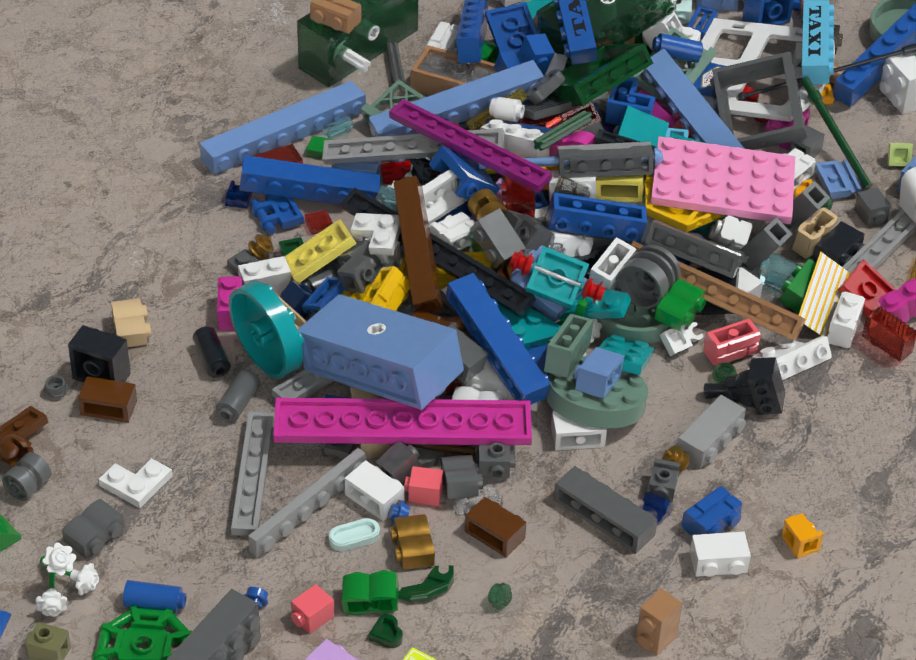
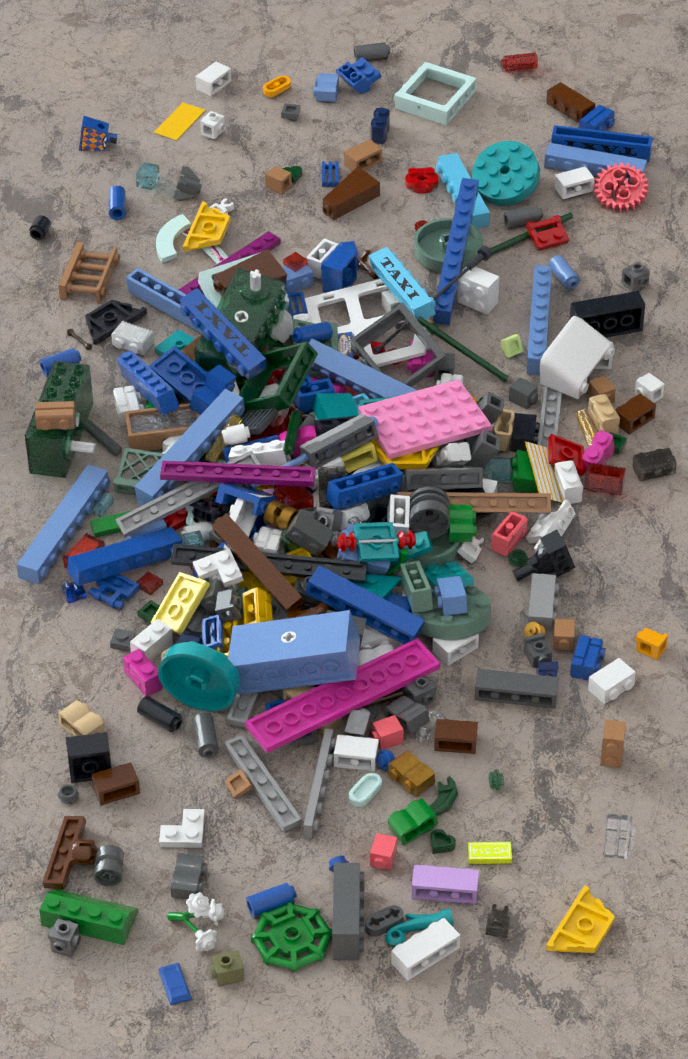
camera: 30 degrees left, 0 degrees up
(227, 461) = (238, 784): none -> medium nougat plate
(261, 246) = (127, 620): pearl gold wheel -> none
(545, 86) = (250, 404): dark grey beam -> none
(707, 476) = (564, 634): none -> medium nougat brick
(837, 178) = (483, 381): medium blue plate -> none

